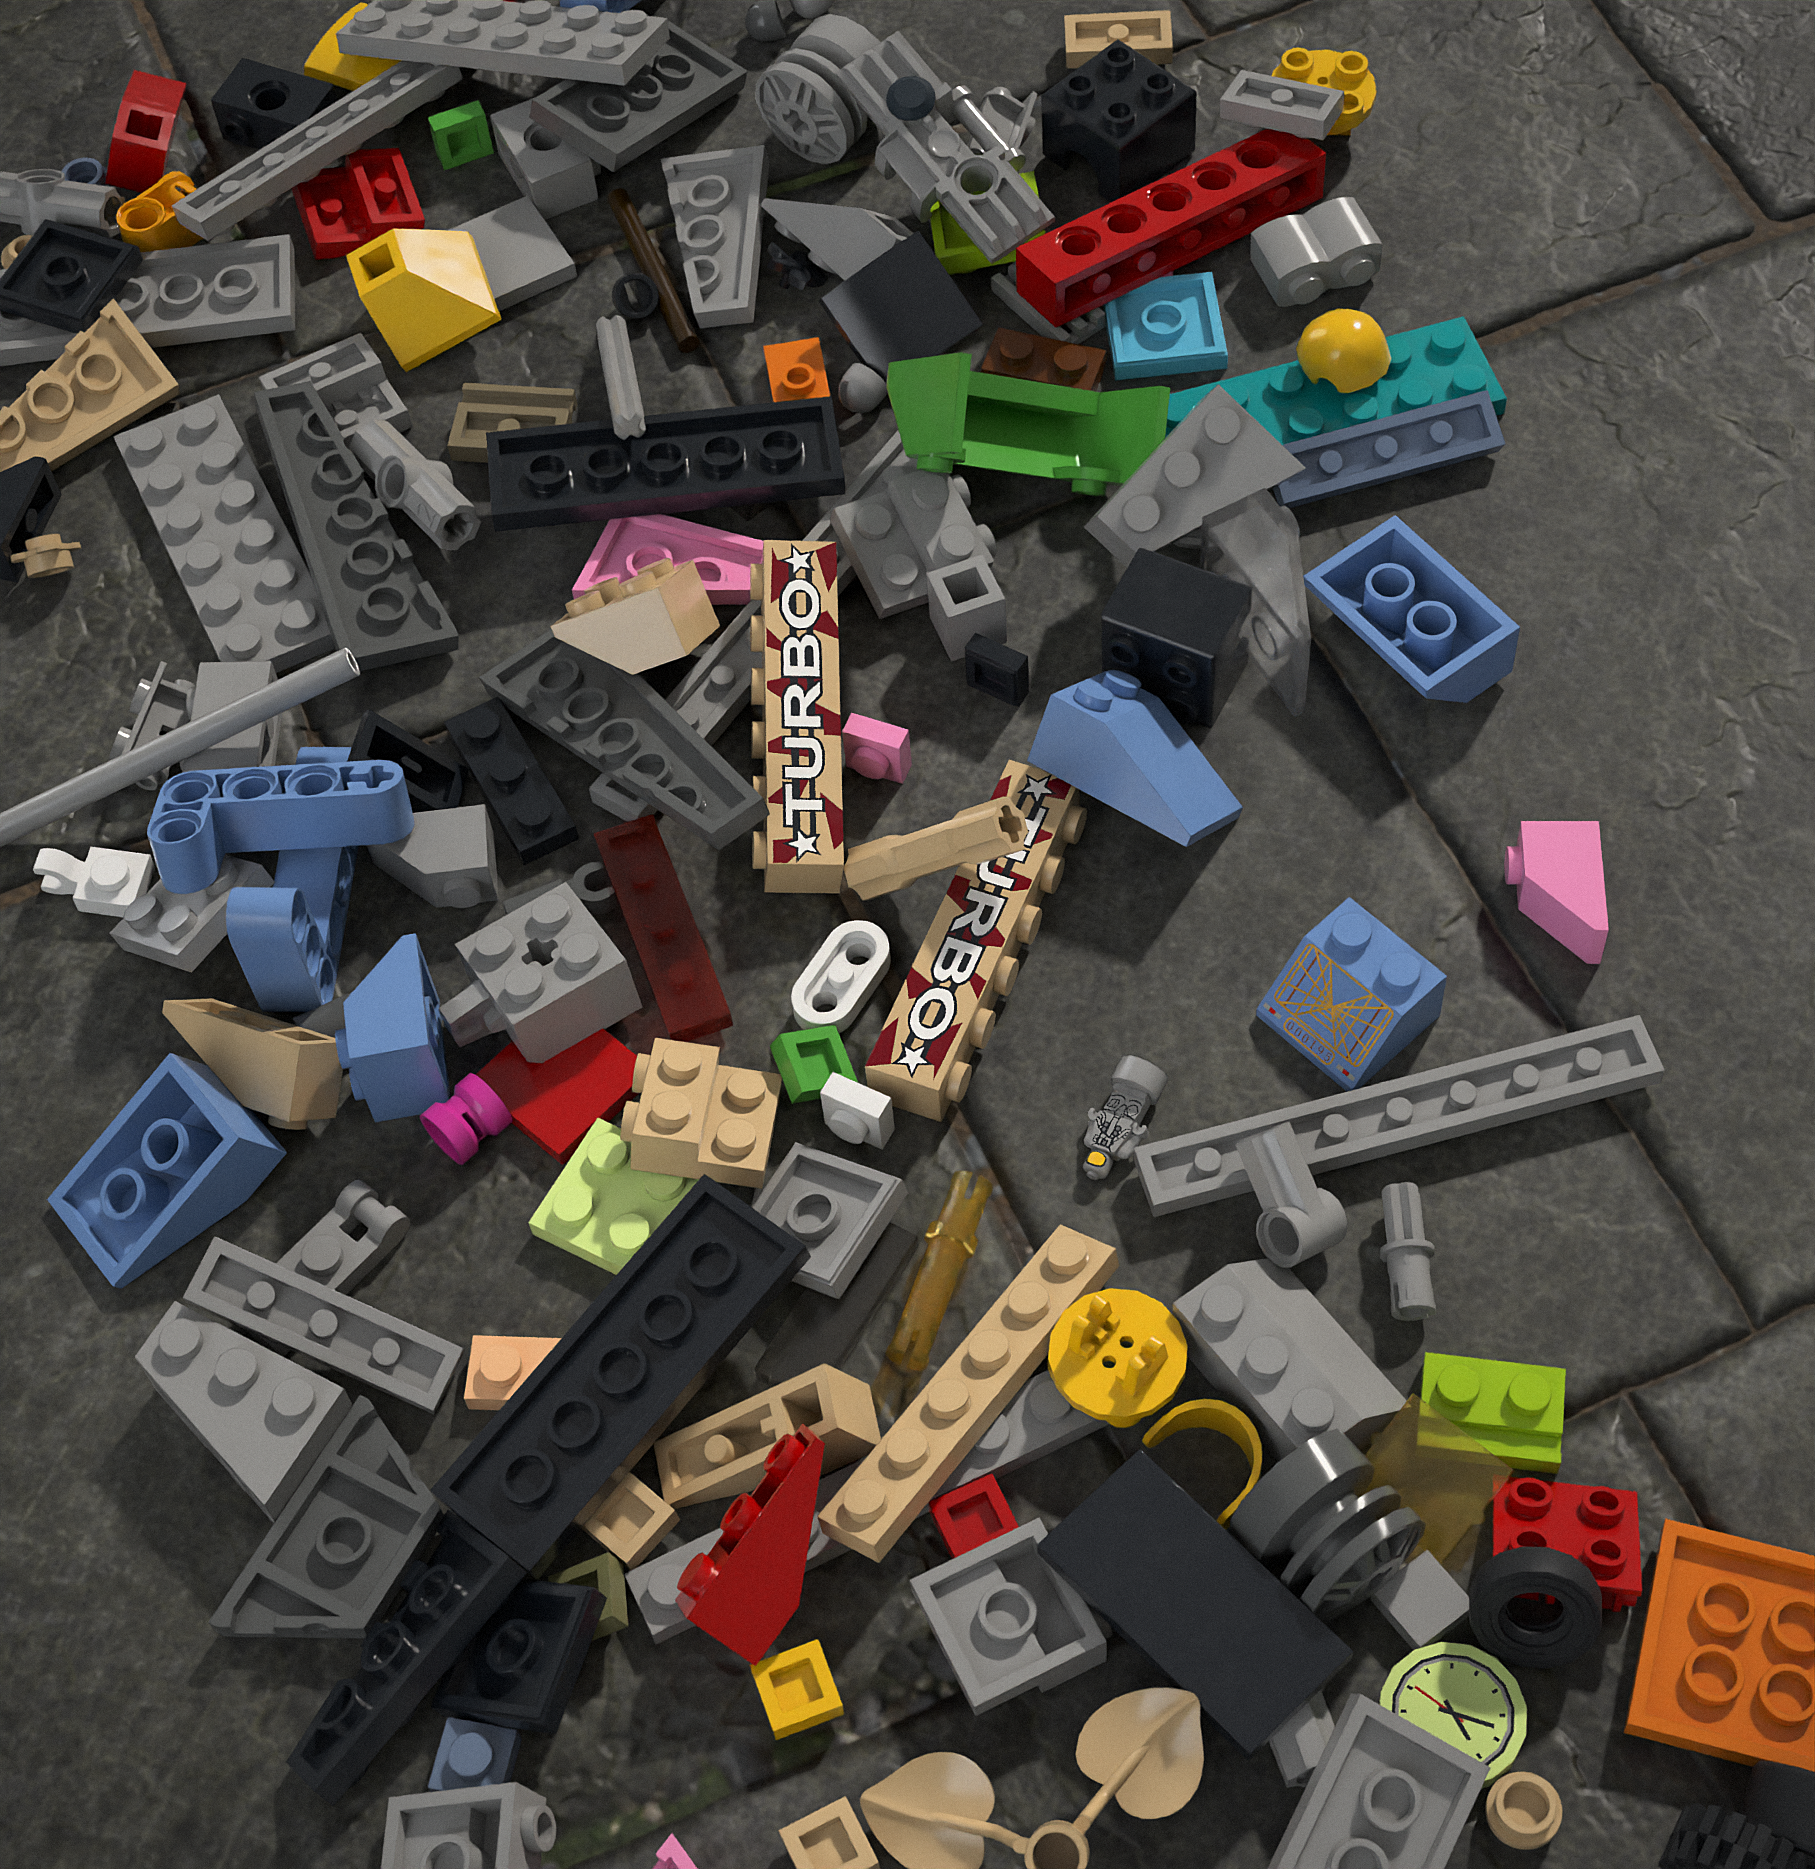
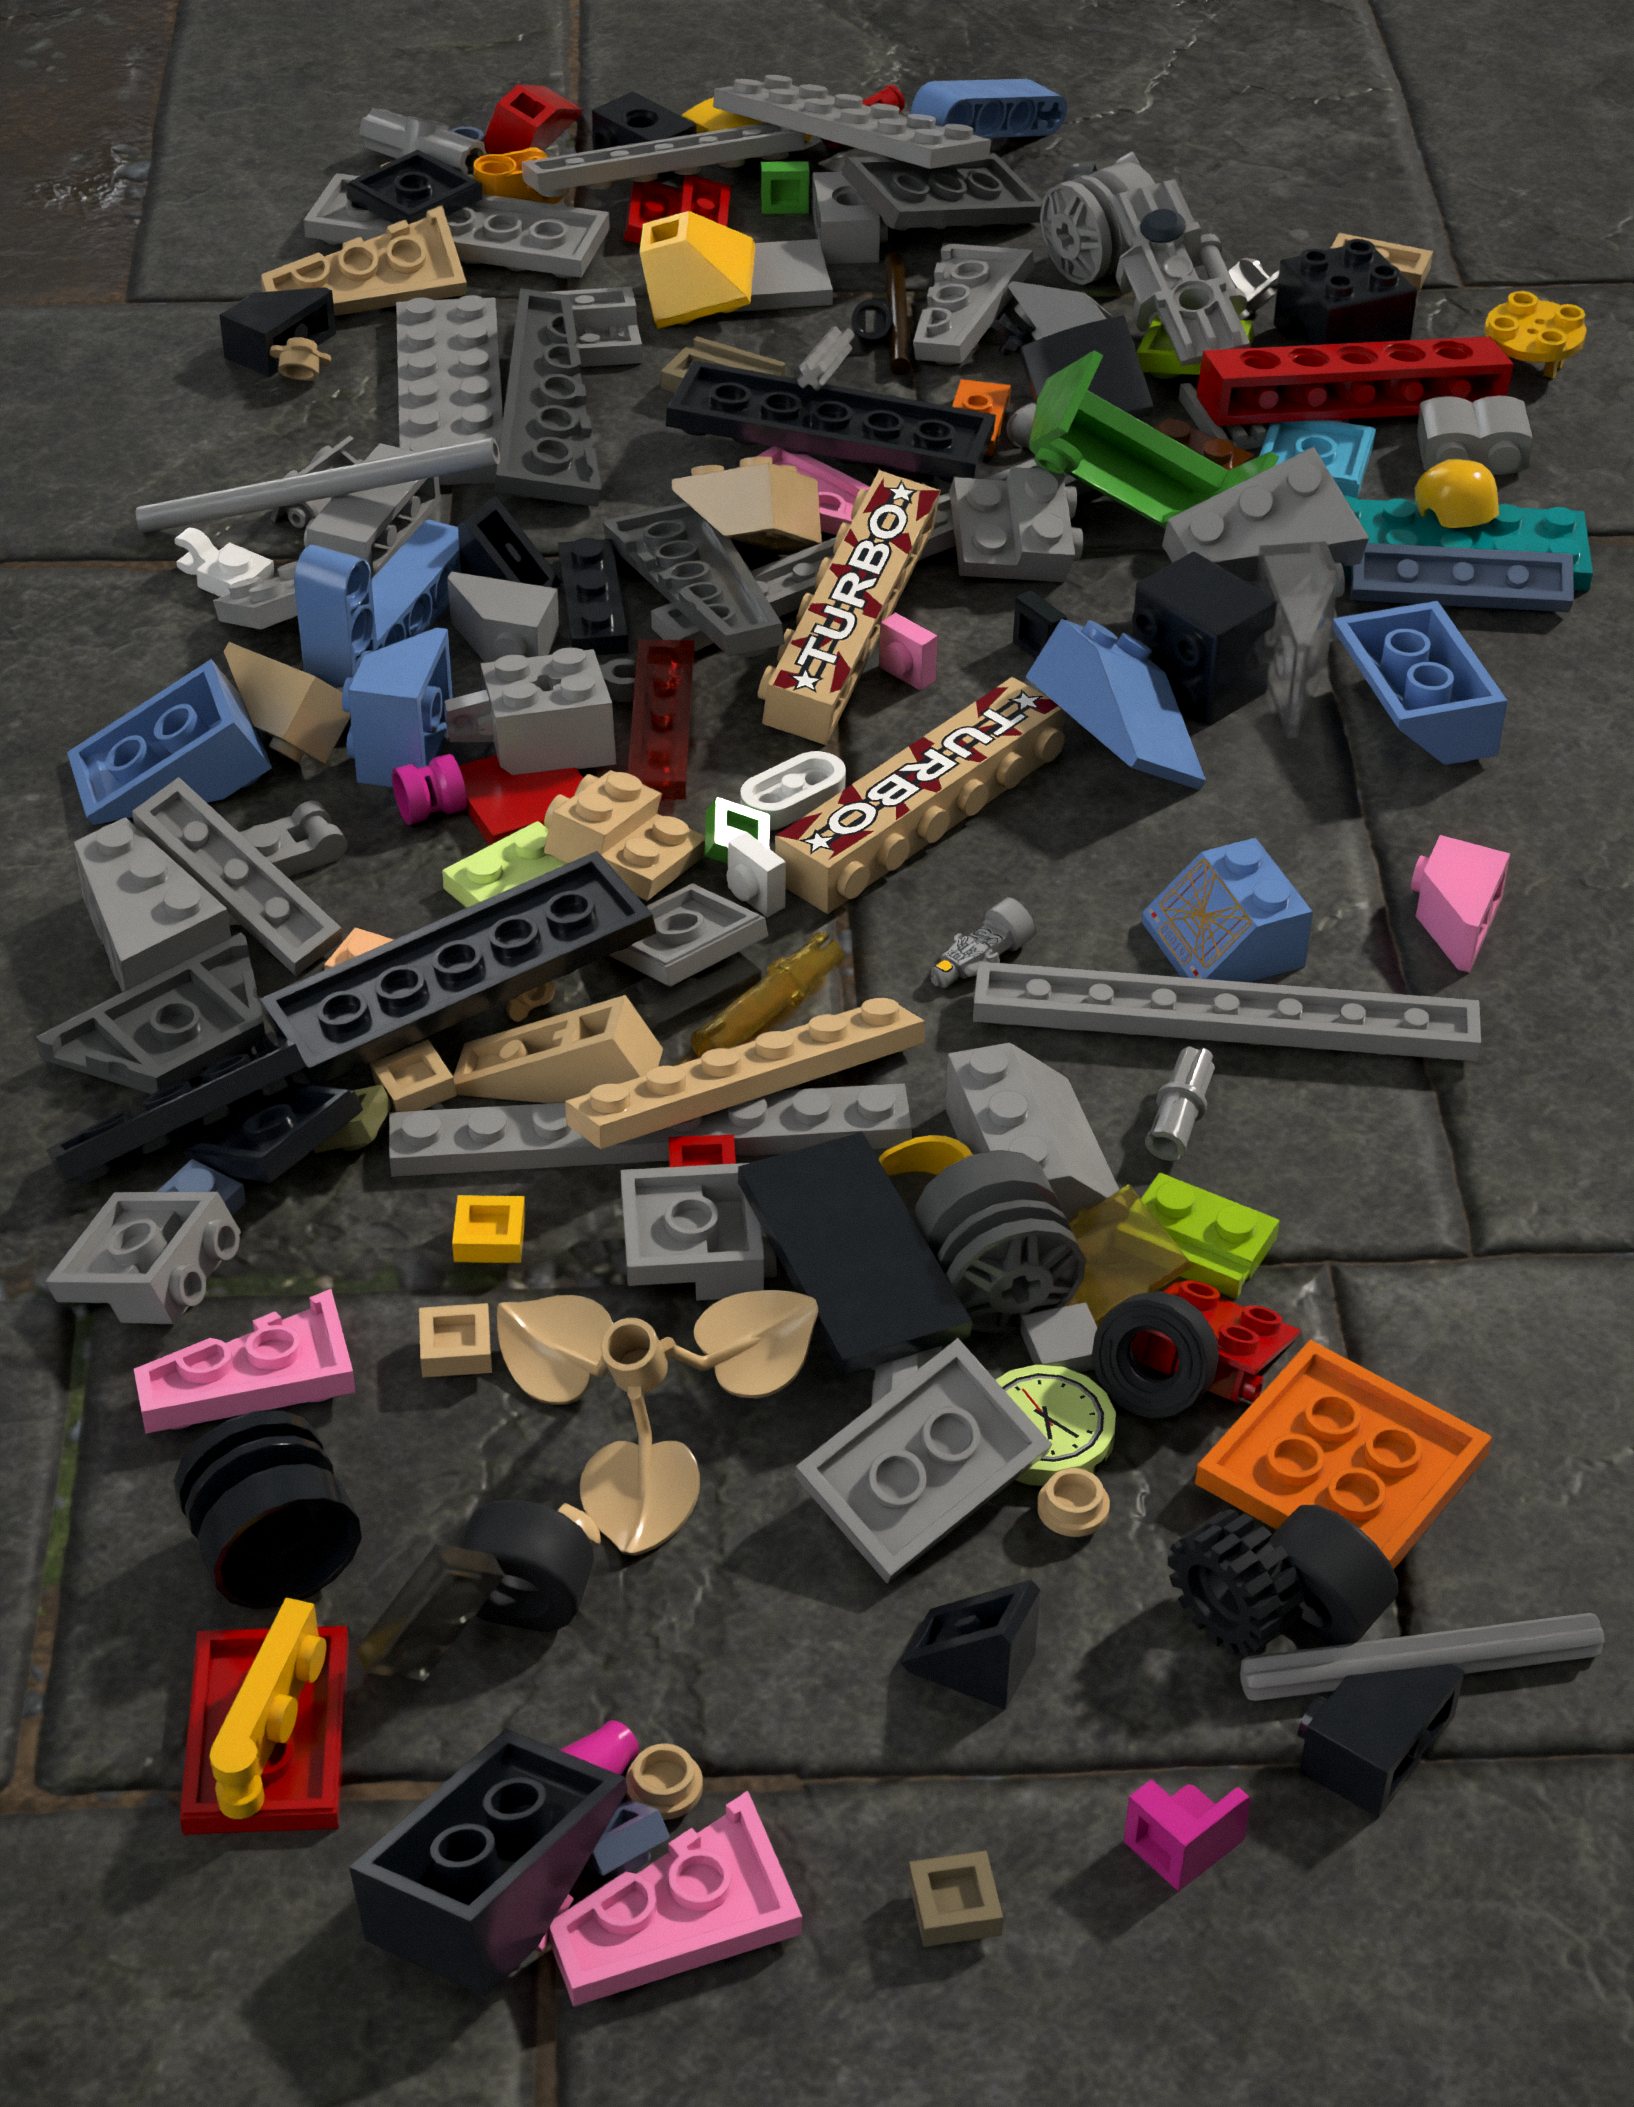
camera: 15 degrees right, 15 degrees down
(272, 809) = (384, 533): medium blue beam -> none
(415, 485) = (619, 387): light grey piece -> none
(758, 1564) = (494, 1123): red slope -> none
(966, 602) = (1036, 565): light grey brick -> none
(970, 837) = (946, 701): tan axle -> none
(1142, 1376) = (883, 1080): yellow plate -> none
(1282, 105) = (1489, 318): light grey plate -> none
(1296, 1214) = (1092, 1039): light grey piece -> none

